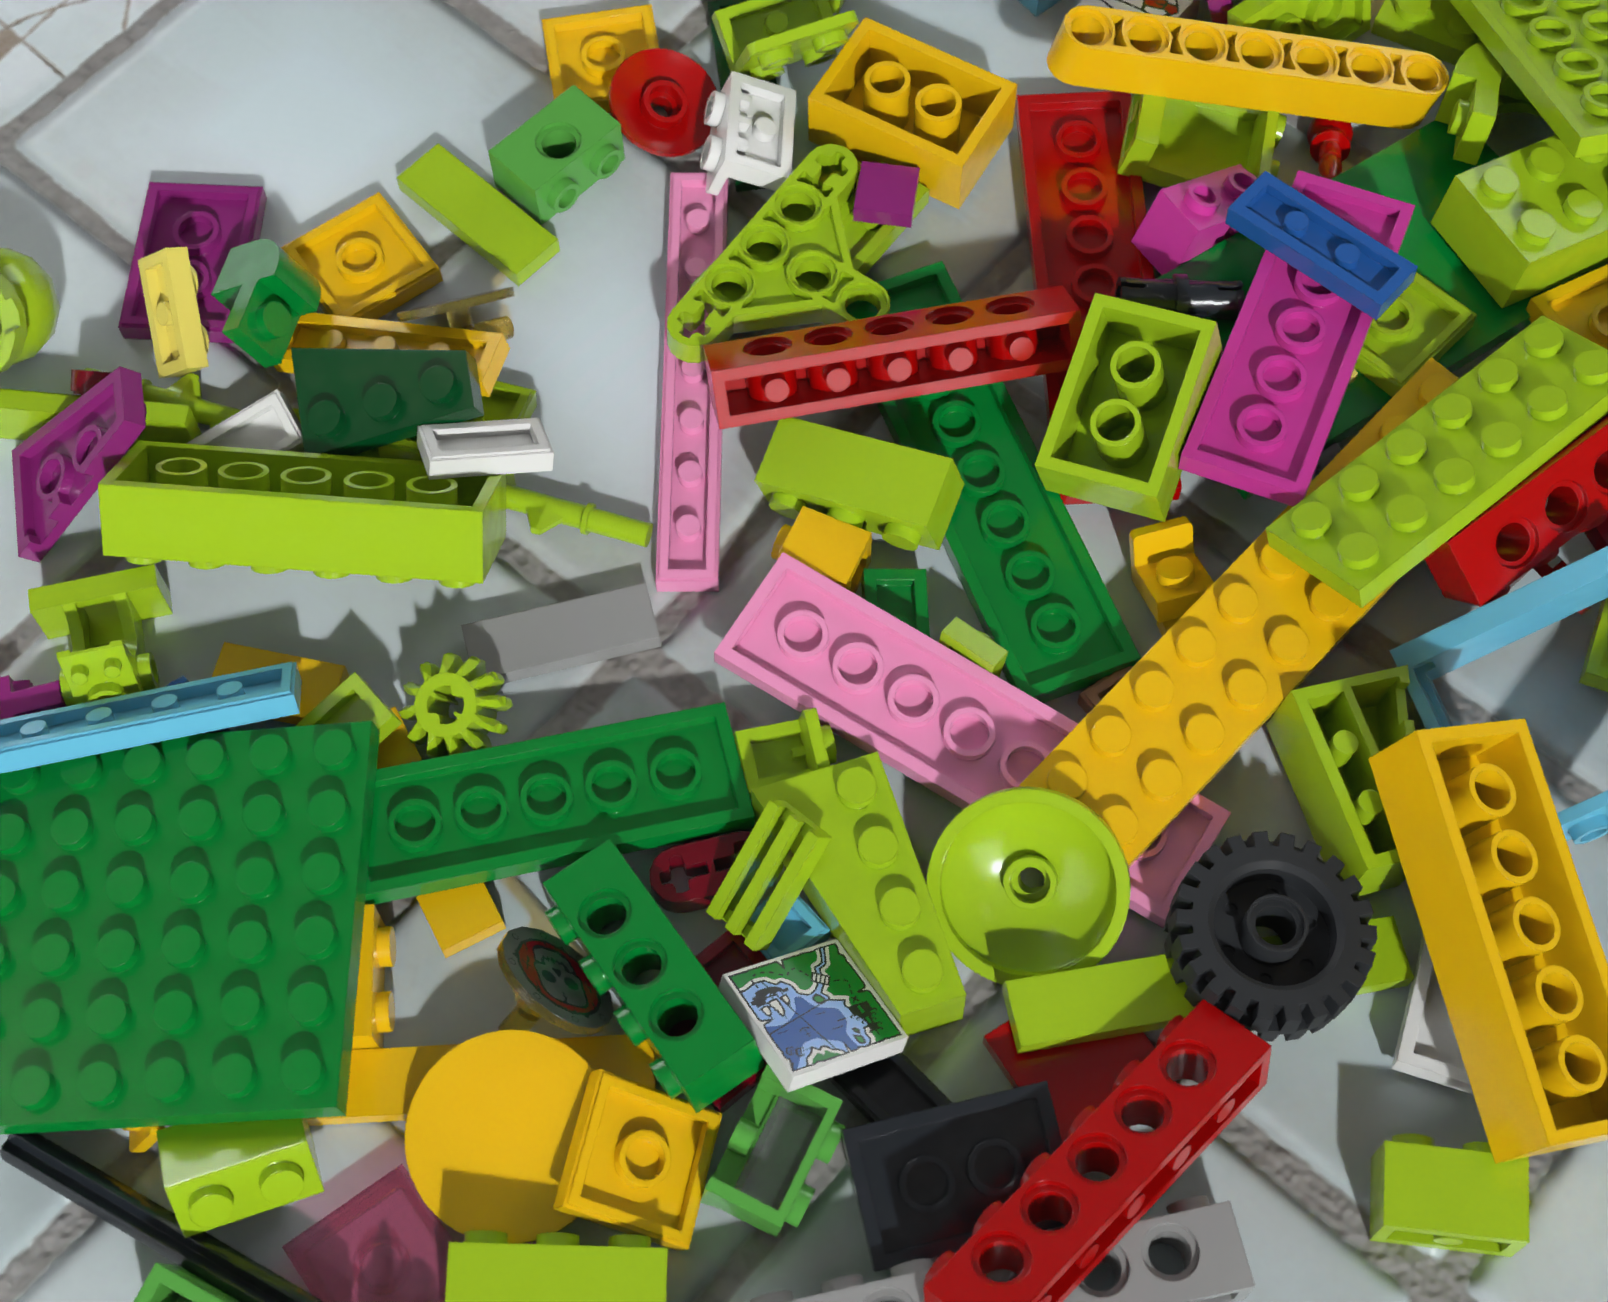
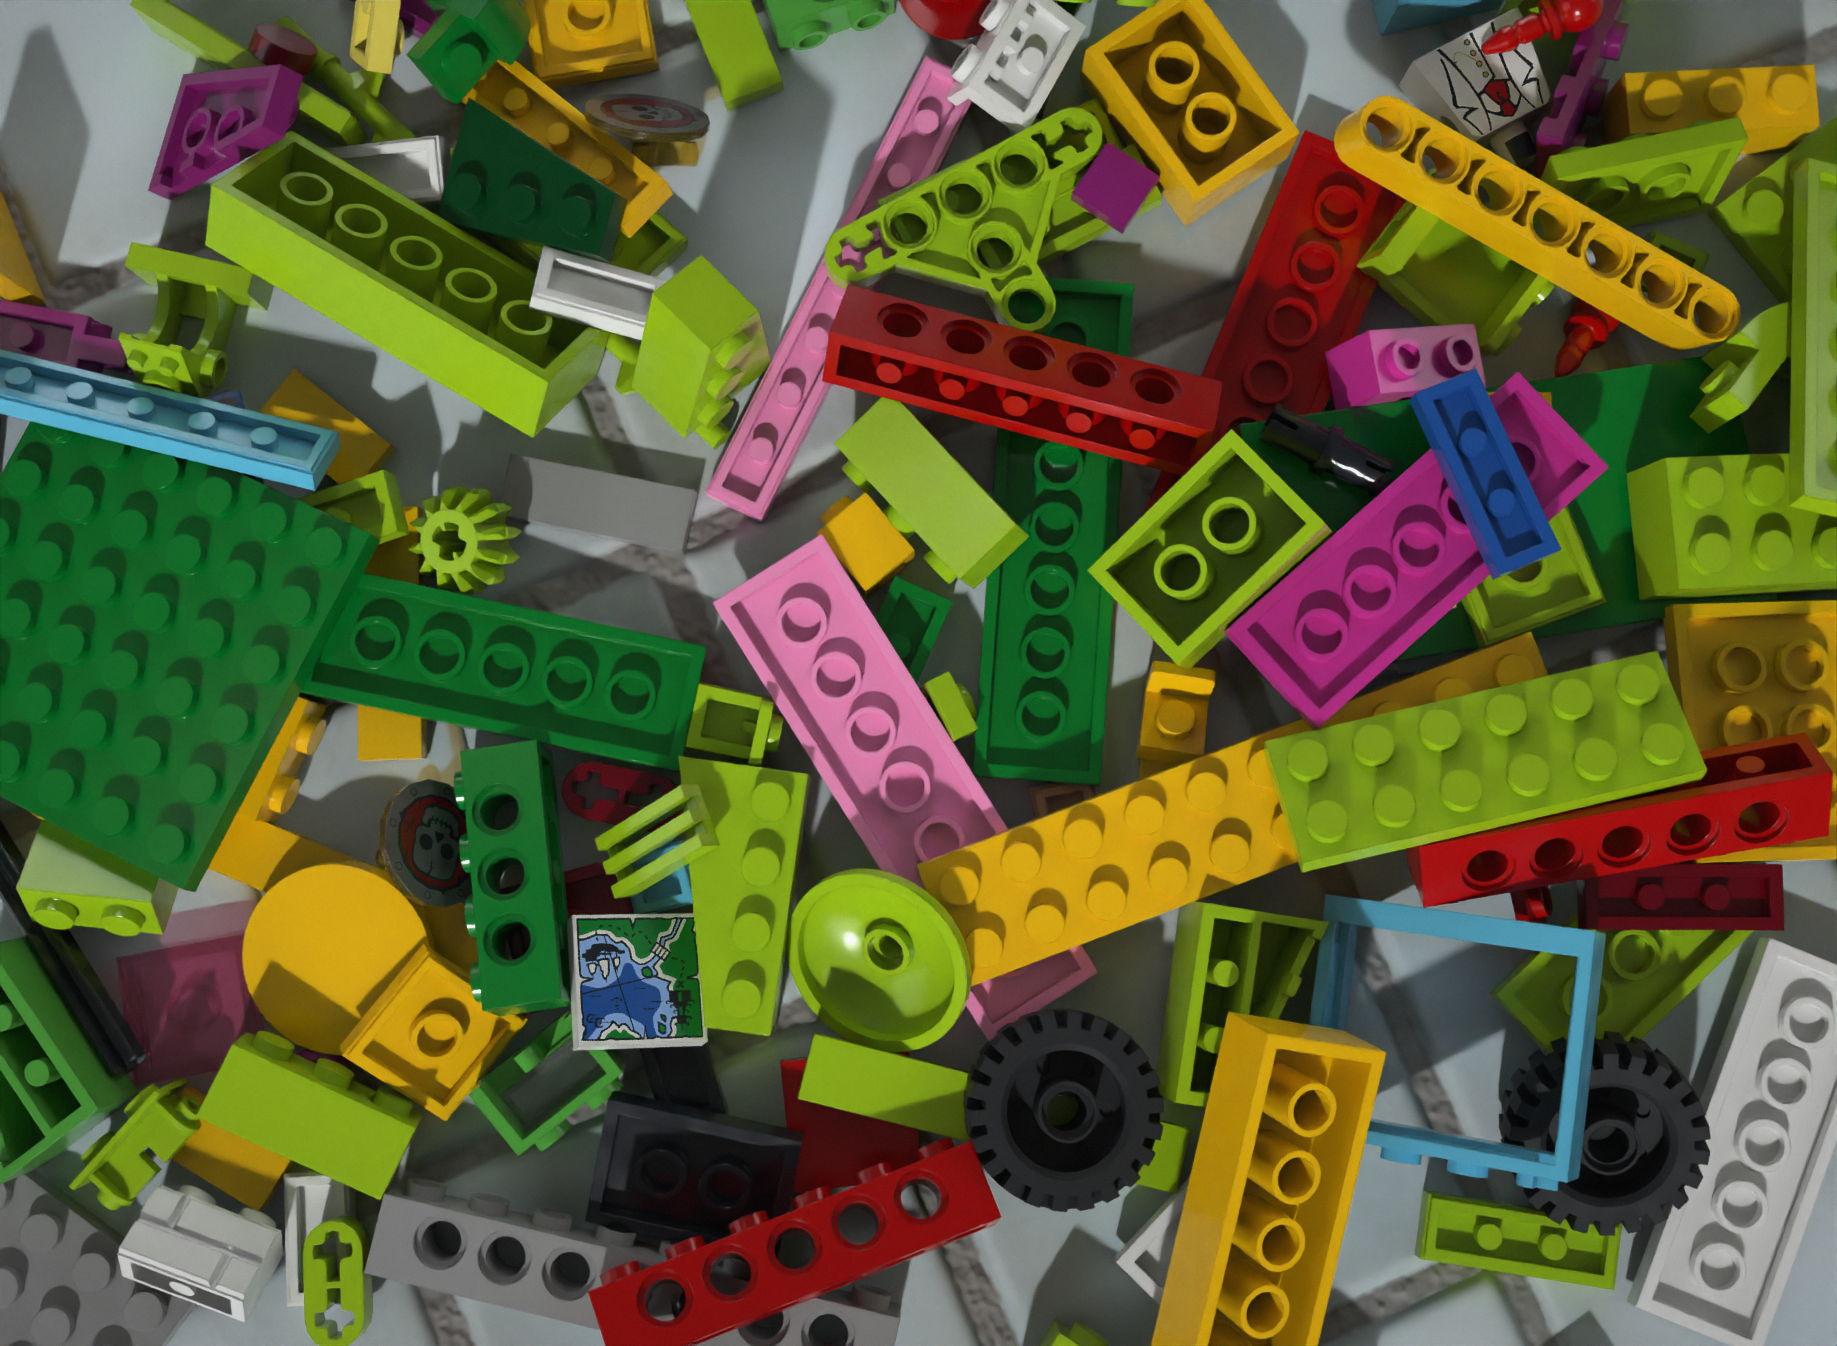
camera: 25 degrees right, 20 degrees up
(600, 438) = (698, 348): none -> lime wedge

